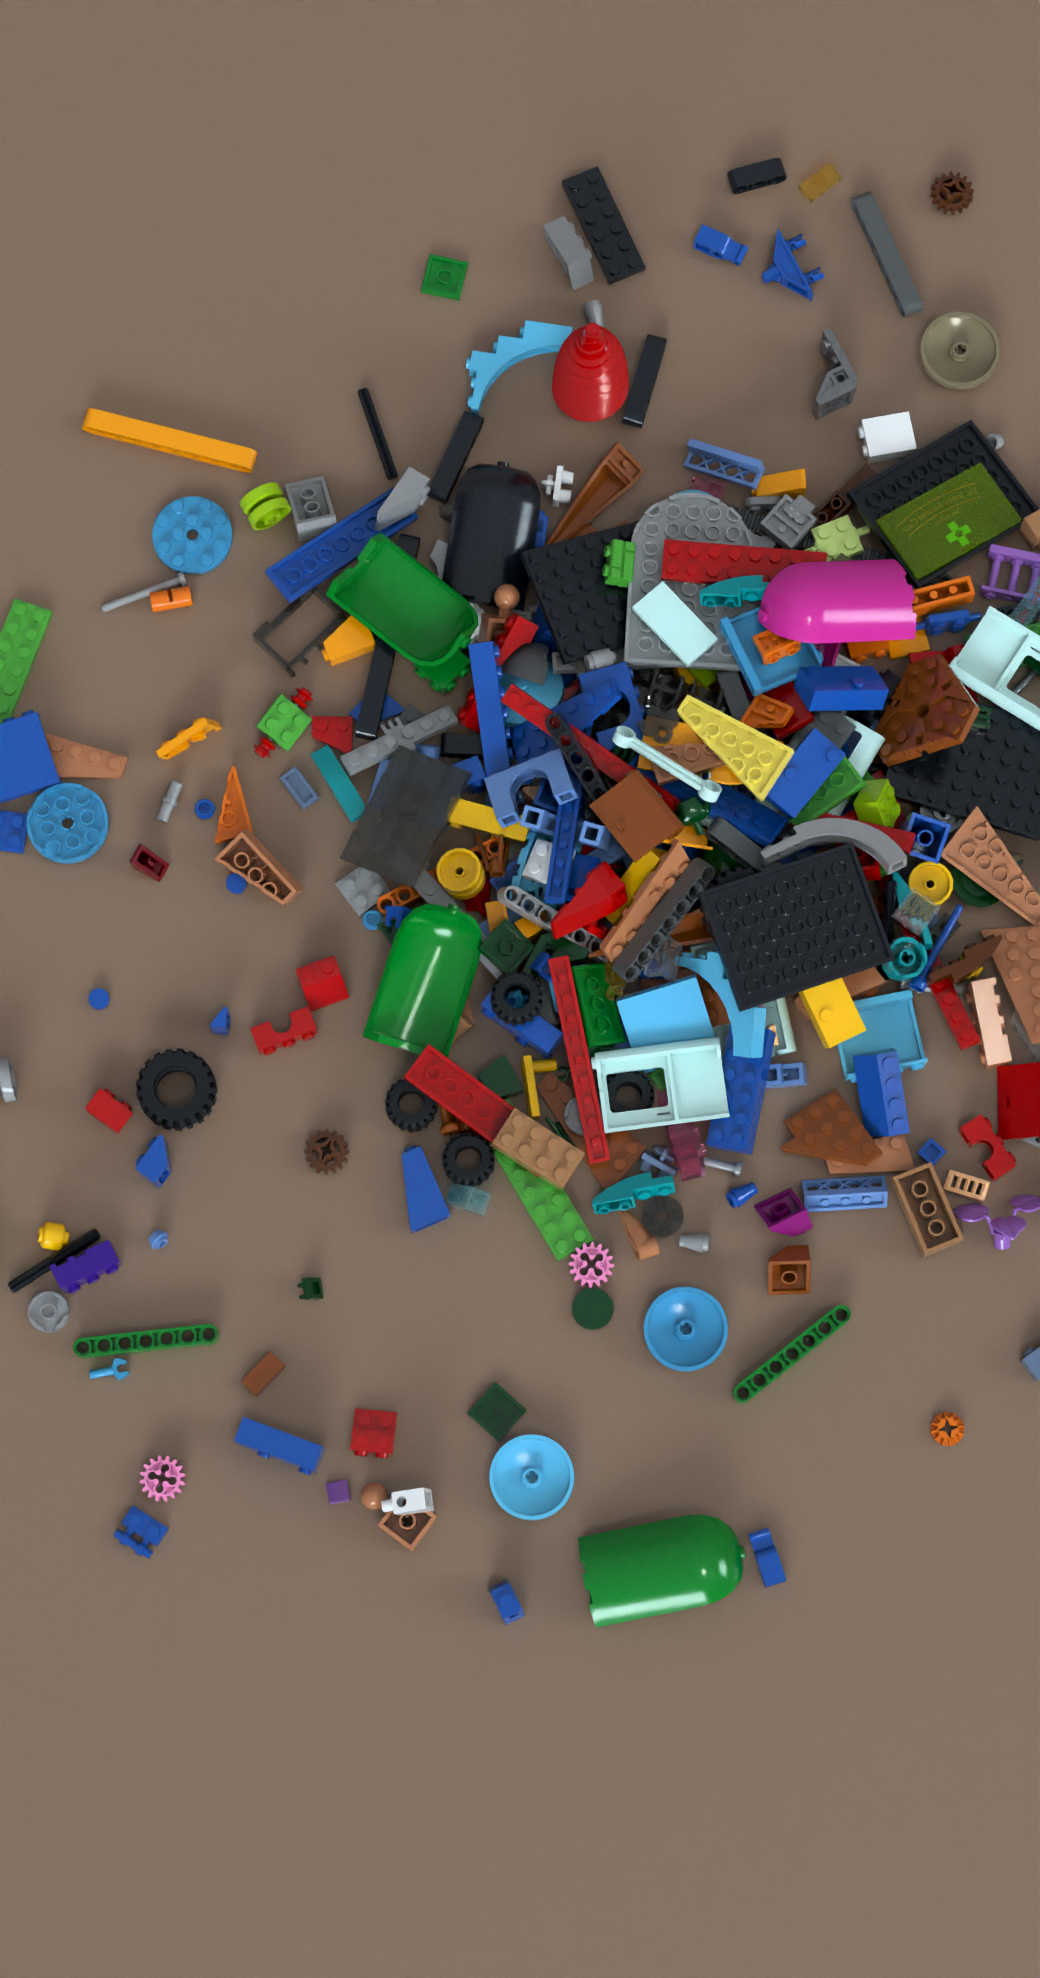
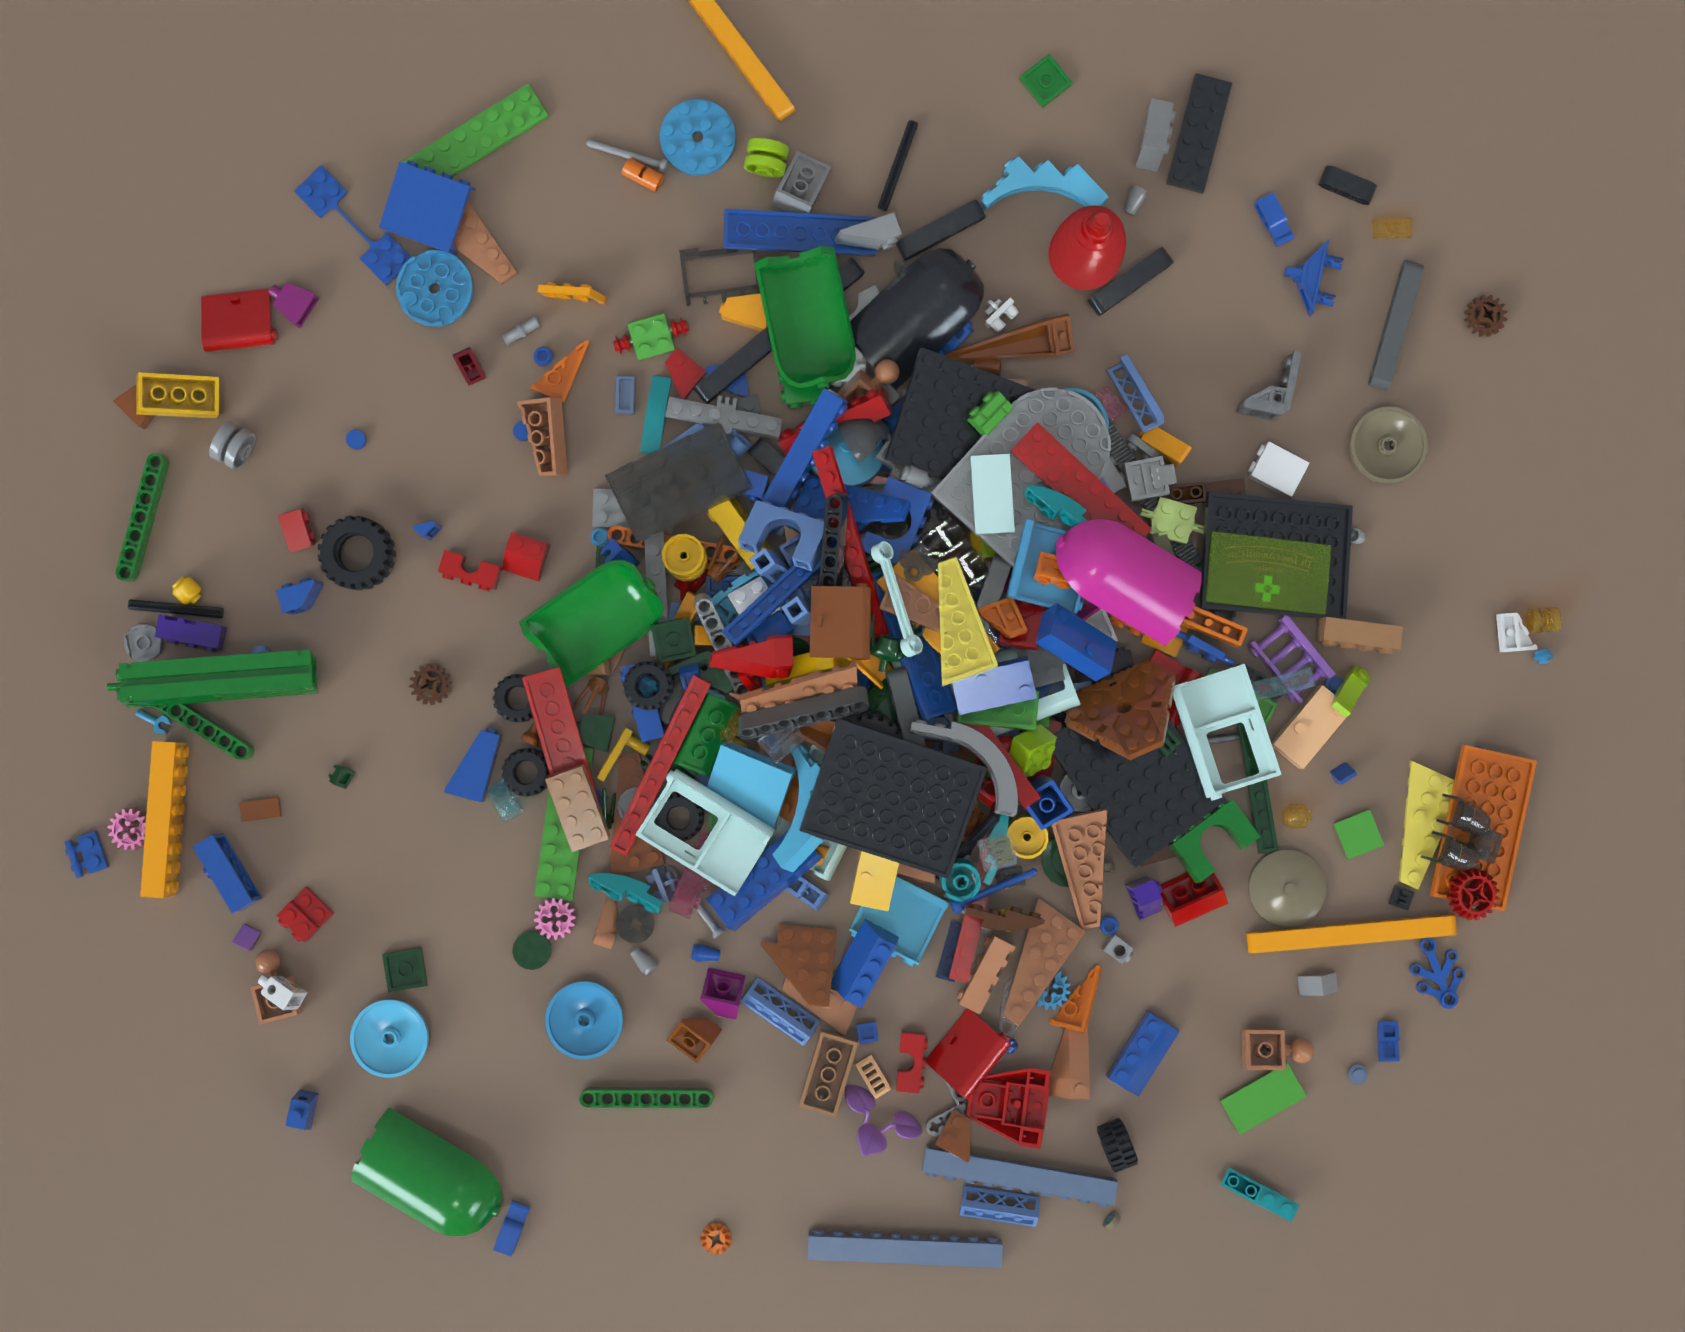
camera: 40 degrees right, 10 degrees up
(141, 1284) = (216, 678): none -> green piece
(187, 1443) = (164, 819): none -> light orange brick
(471, 1043) = (597, 686): none -> dark orange plant
(944, 1033) = (948, 951): none -> dark blue tile

